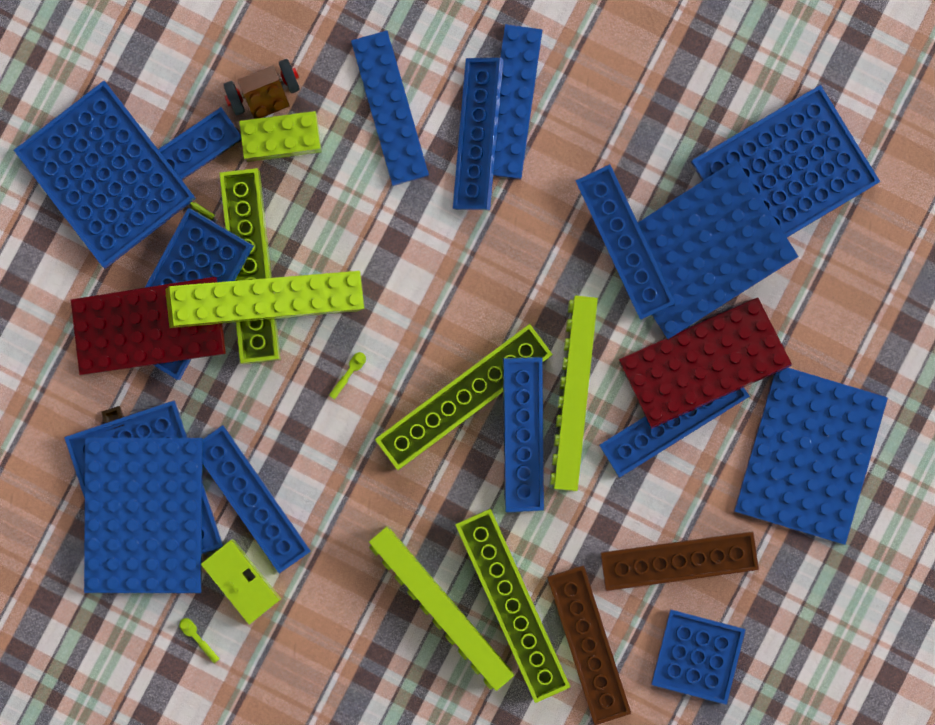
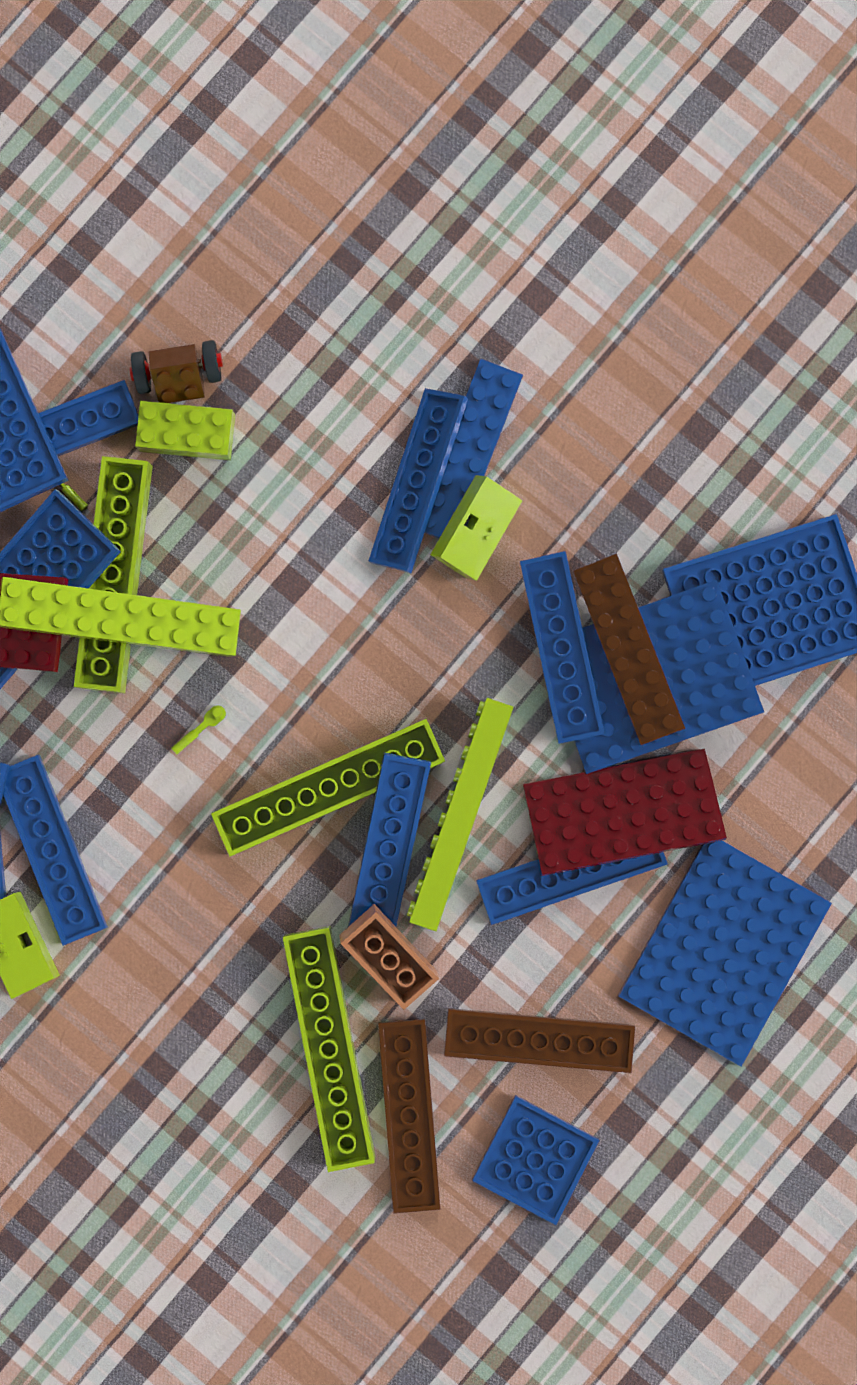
camera: 15 degrees right, 0 degrees up
(390, 108) = (322, 426): blue plate -> none
(442, 608) = (244, 1033): lime brick -> none
(533, 161) = (476, 527): none -> lime brick
(543, 521) = (388, 957): none -> nougat brick
(679, 231) = (629, 649): none -> reddish brown plate

